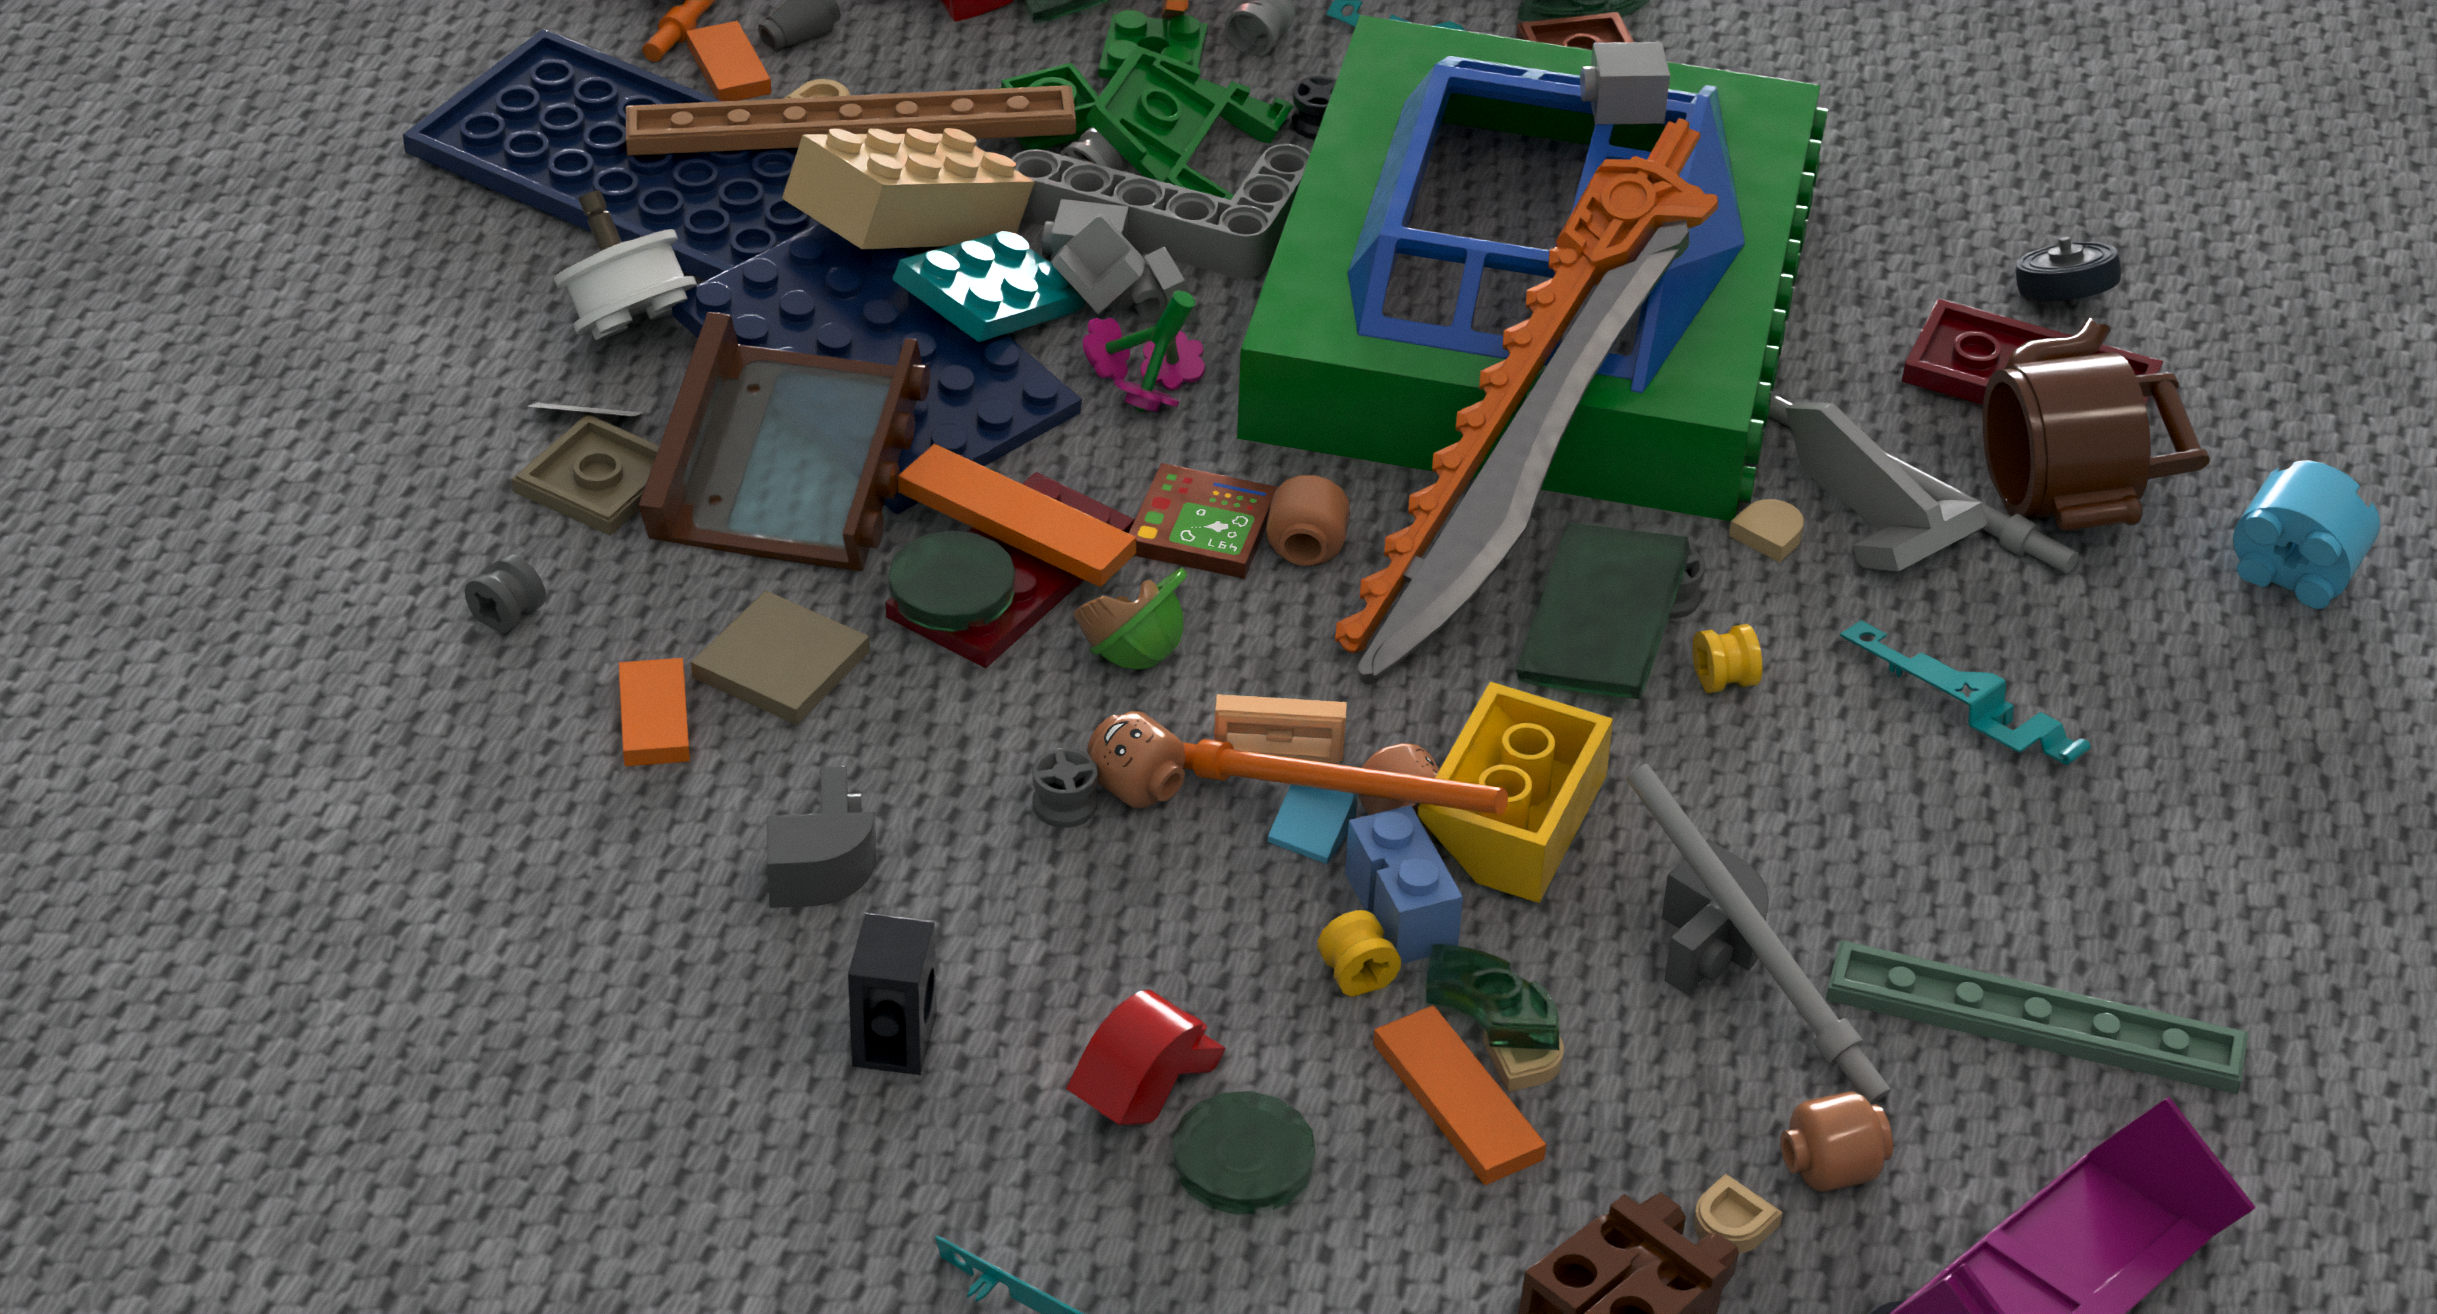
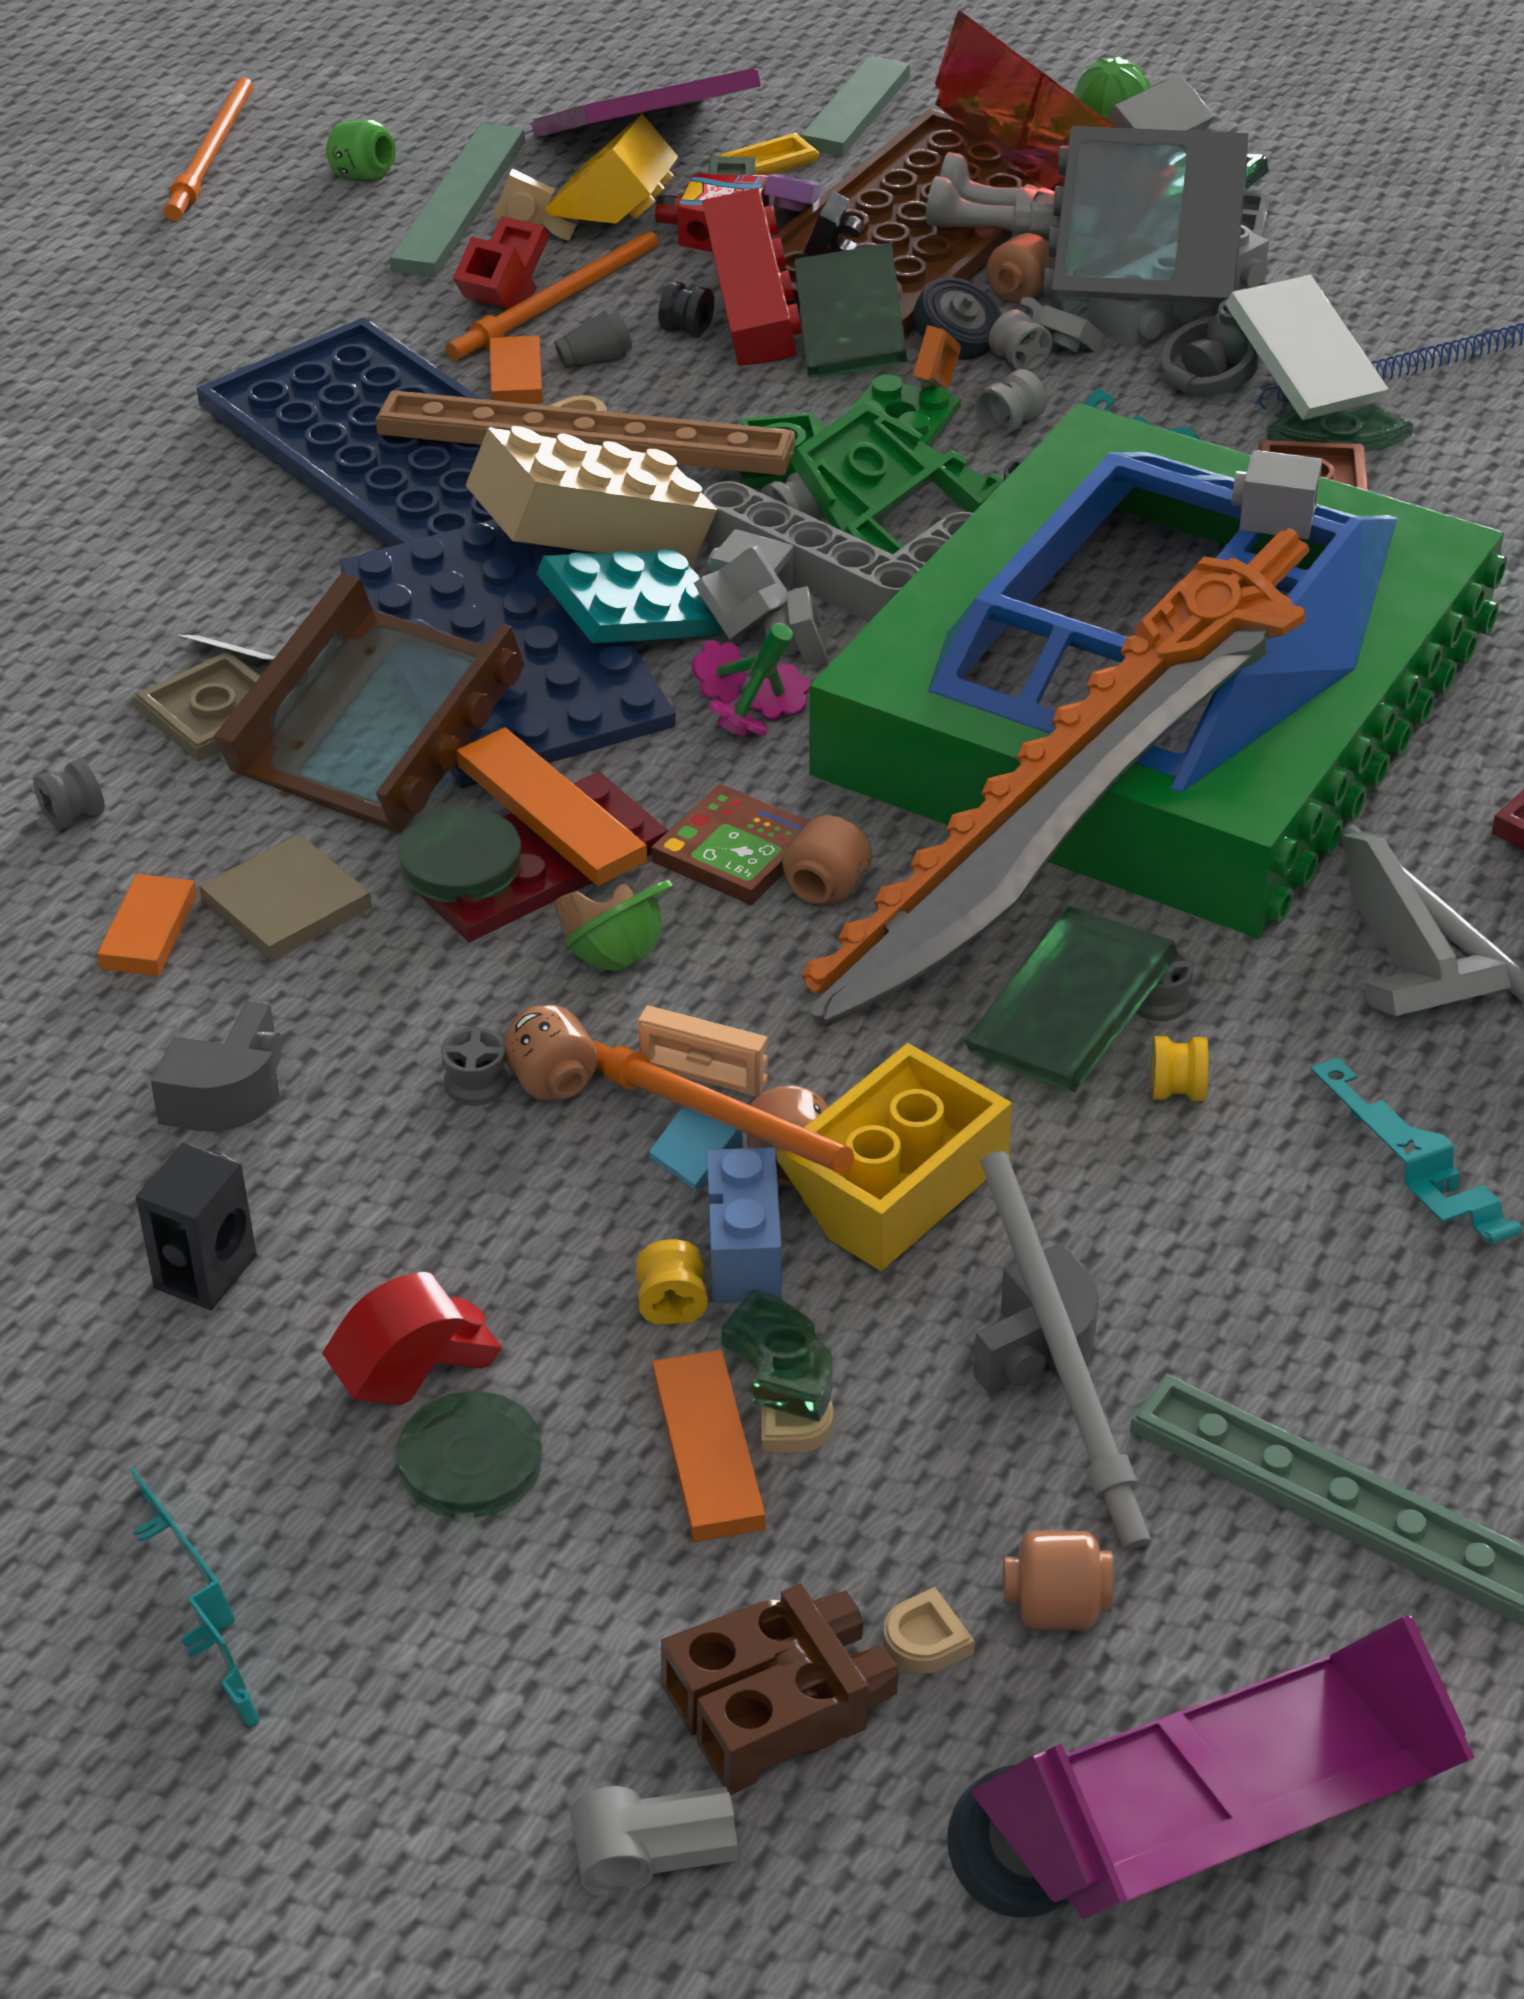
camera: 20 degrees right, 0 degrees up
(622, 276) = (303, 533): white wheel -> none
(1769, 527) = (1288, 950): tan tile -> none

